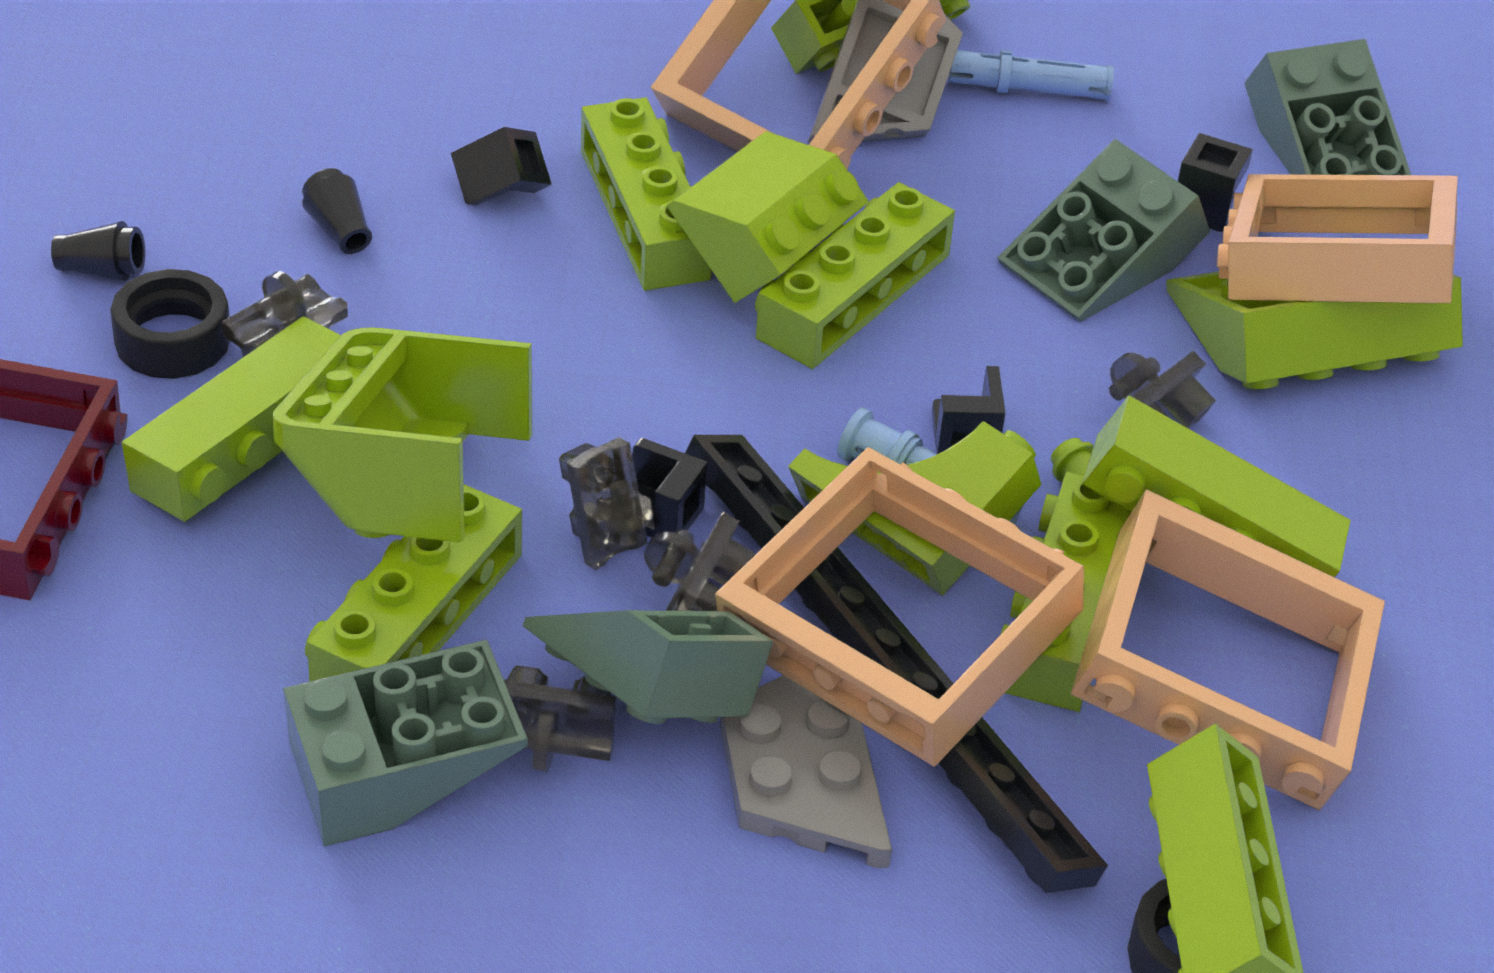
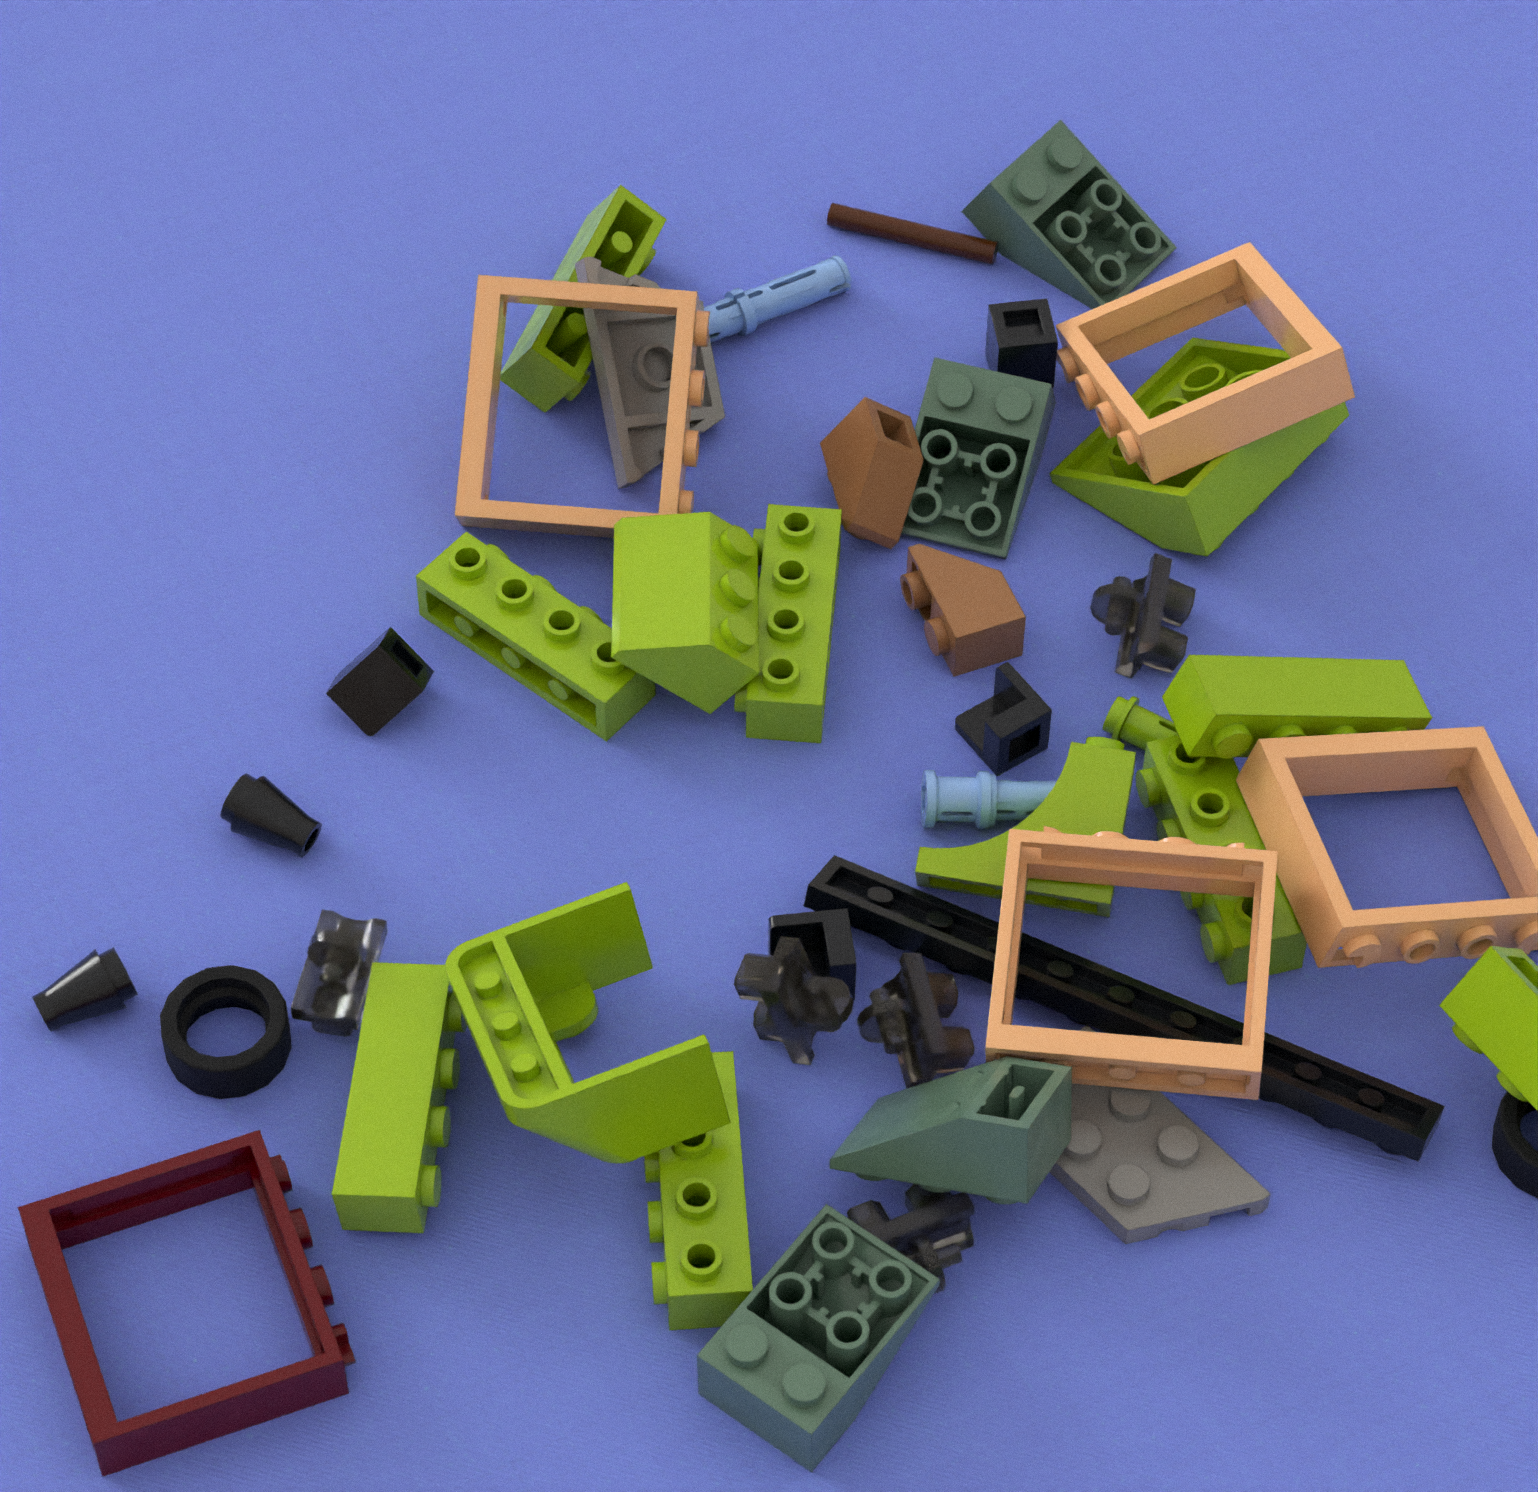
camera: 30 degrees left, 10 degrees up
(1004, 327) = (964, 609): none -> medium nougat slope
(1009, 203) = (873, 470): none -> medium nougat slope
(1195, 86) = (912, 233): none -> reddish brown bar

